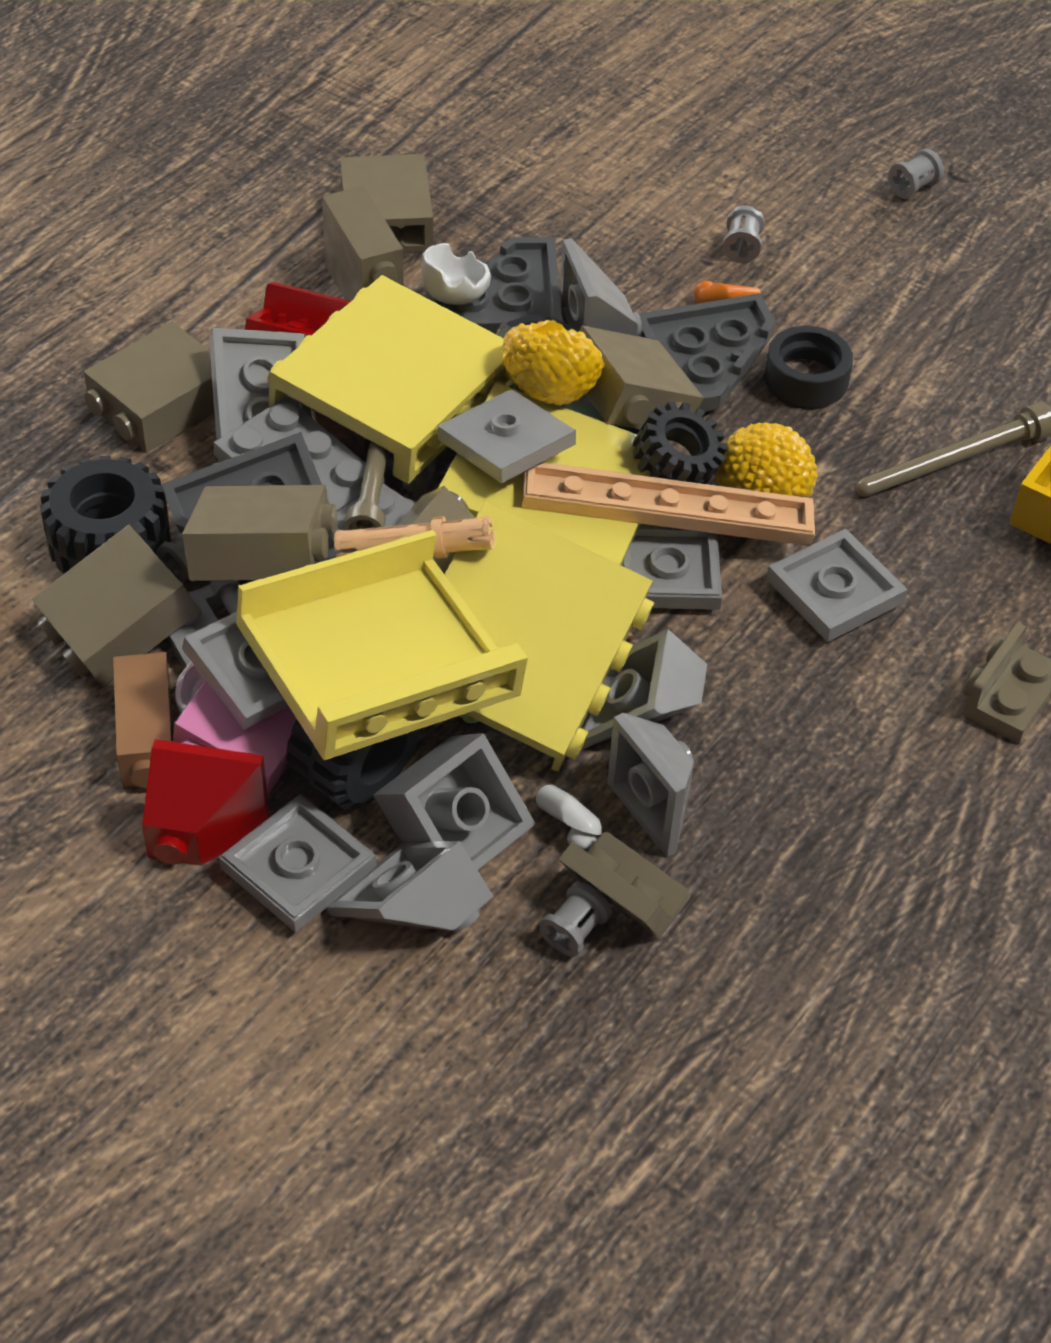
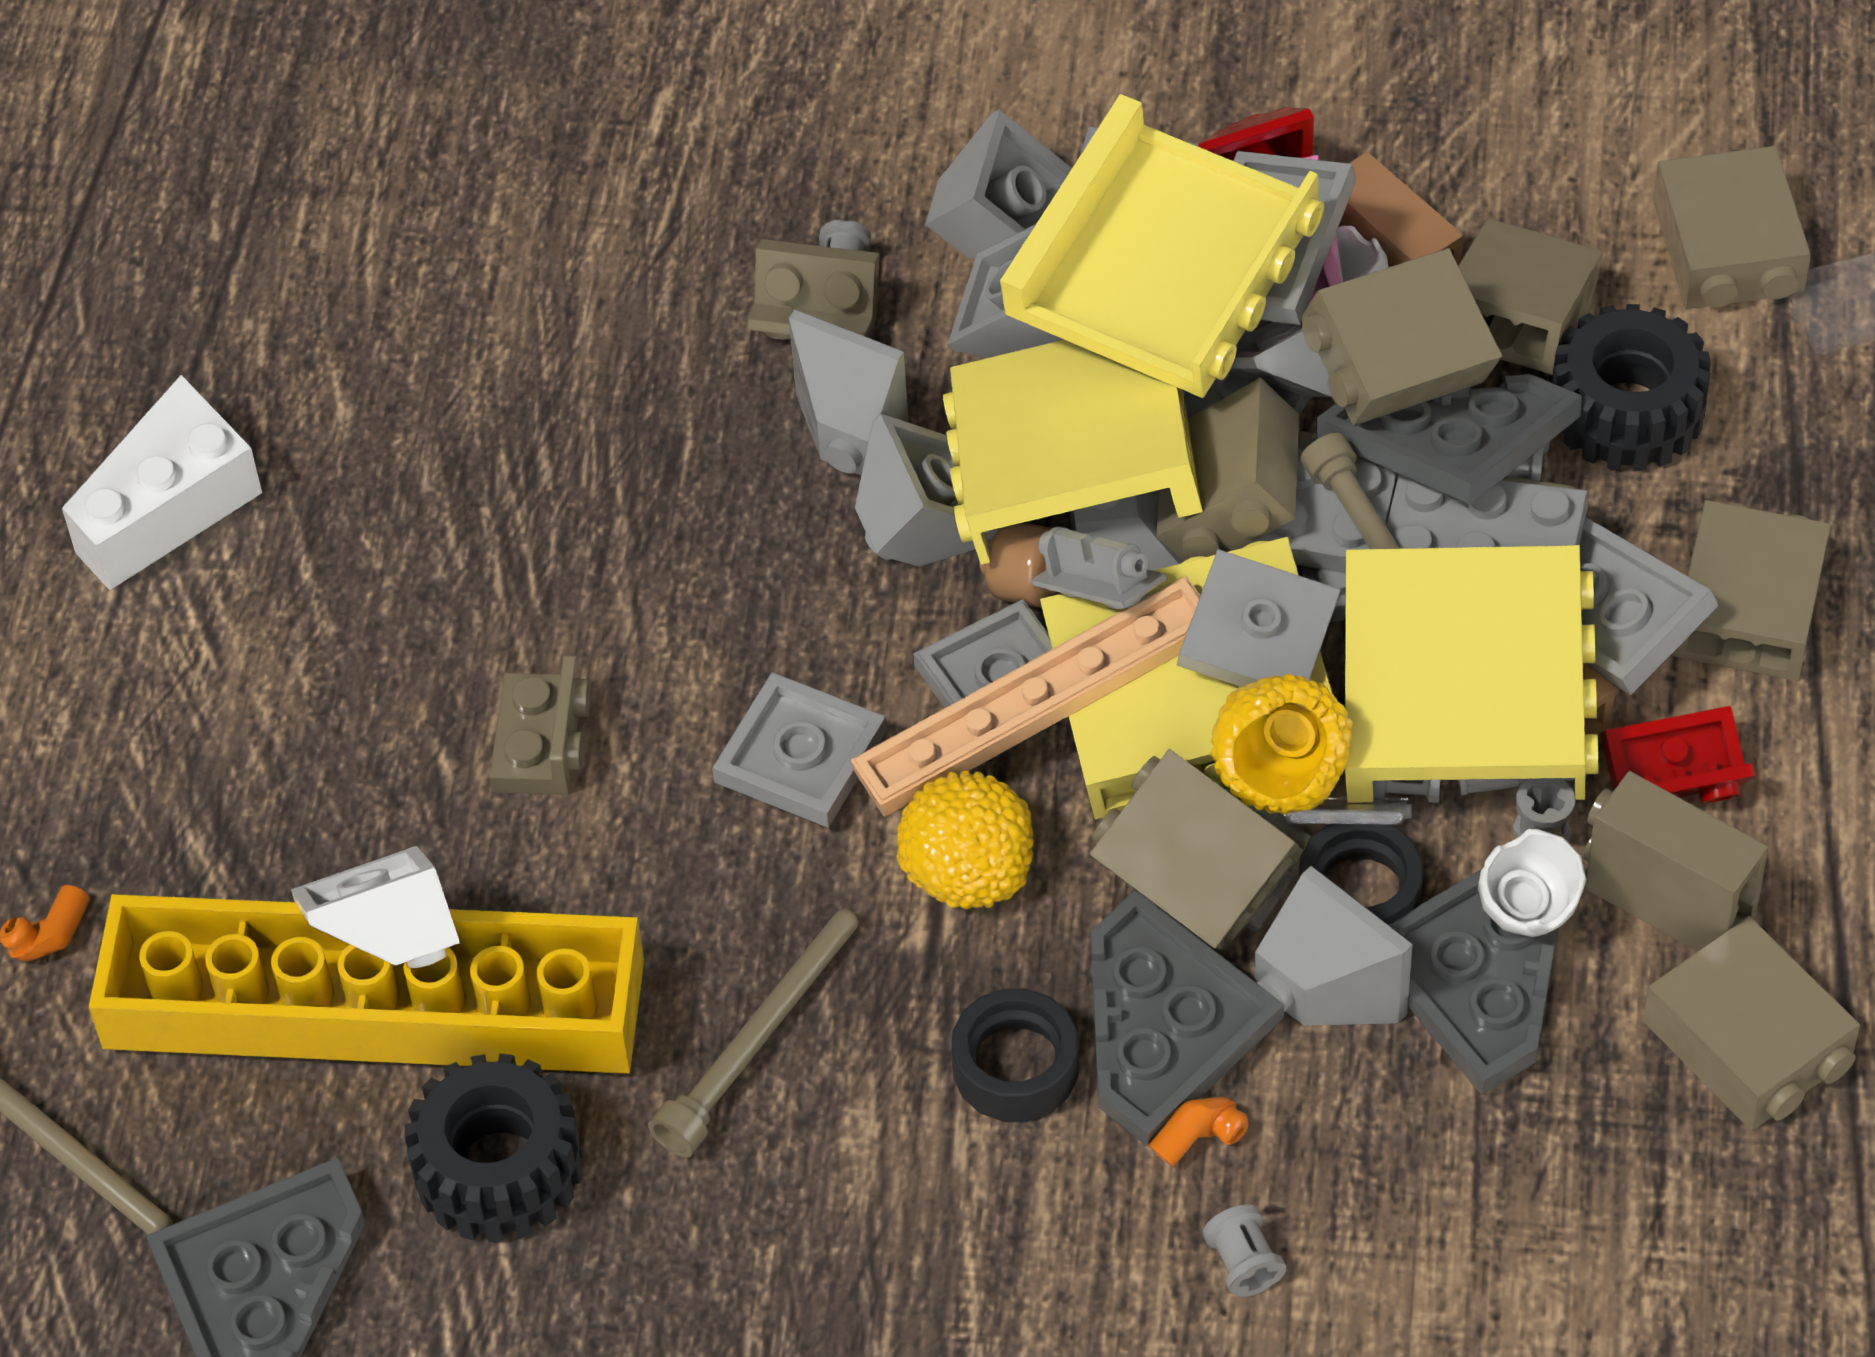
camera: 155 degrees right, 5 degrees up
(450, 536) = (1206, 400): light nougat pin -> none
(572, 813) = (920, 349): white arm -> none
(577, 515) = (1096, 569): none -> light grey hinge
(689, 431) = (1084, 783): black tyre -> none

